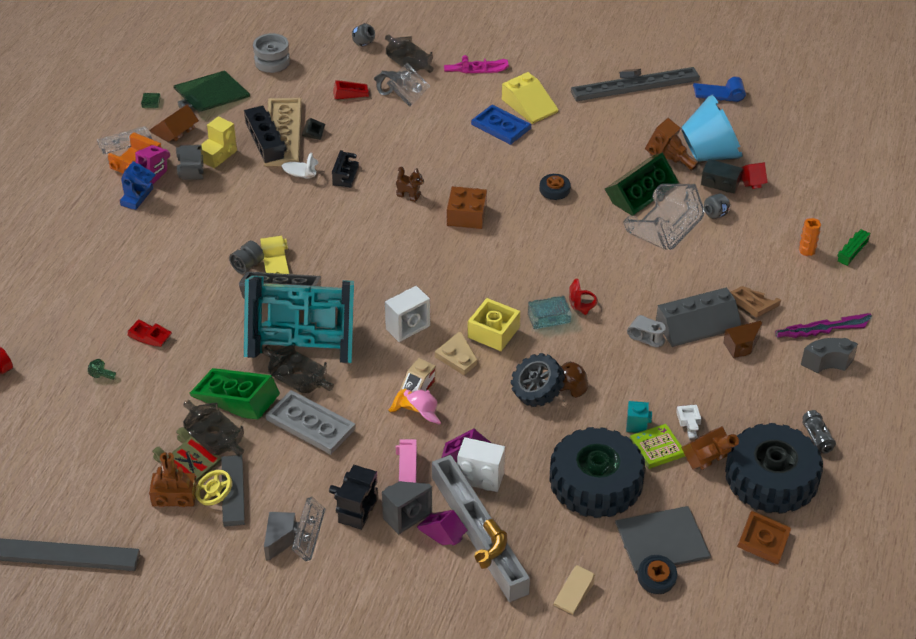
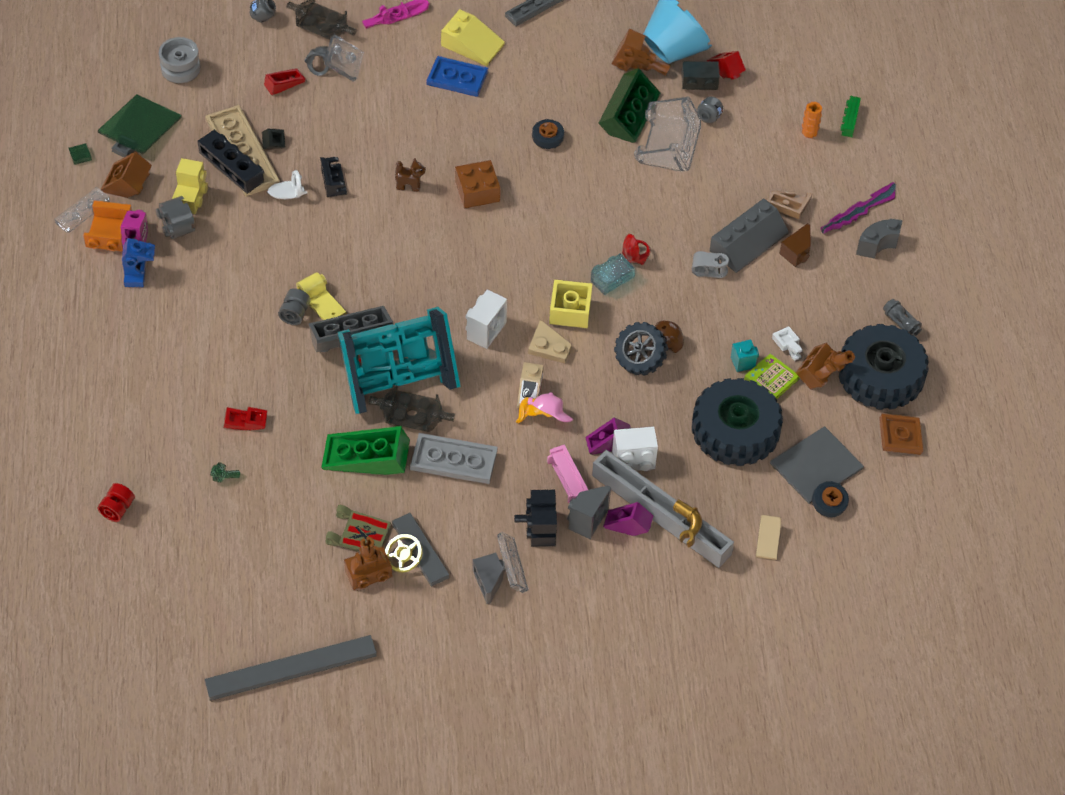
camera: 25 degrees left, 10 degrees up
(207, 418) = (357, 487): clear smoke plate -> none

